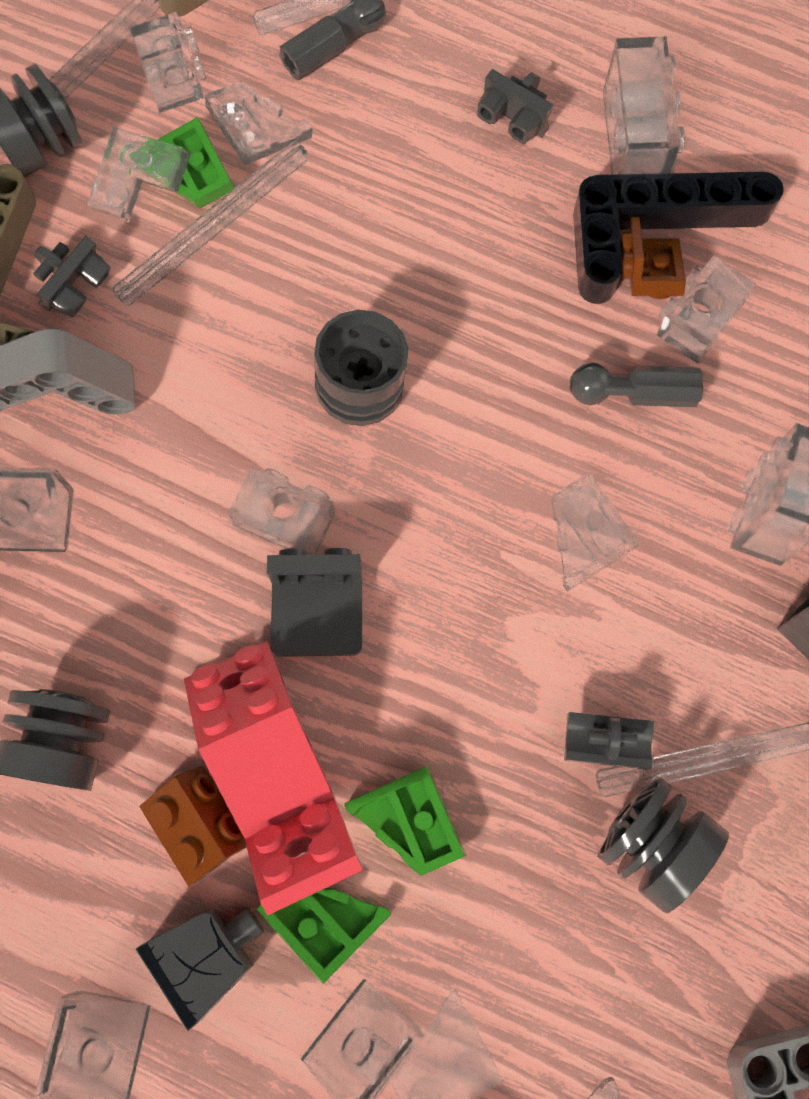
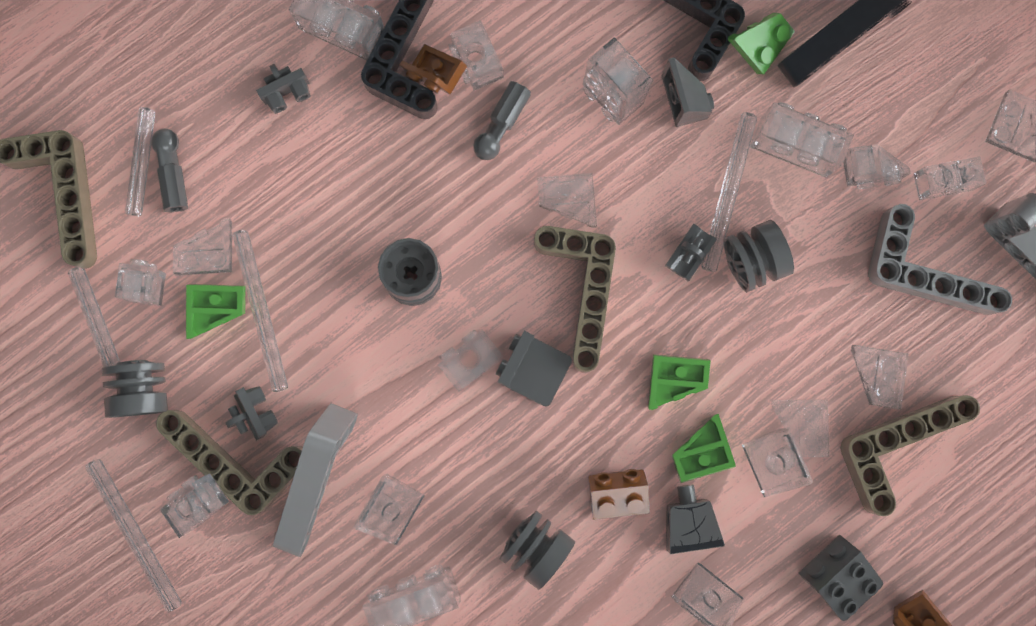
camera: 65 degrees left, 10 degrees up
(128, 163) = (197, 343): clear plate -> none
(269, 777) = (616, 440): coral bracket -> none
(472, 623) = (590, 288): none -> dark tan beam

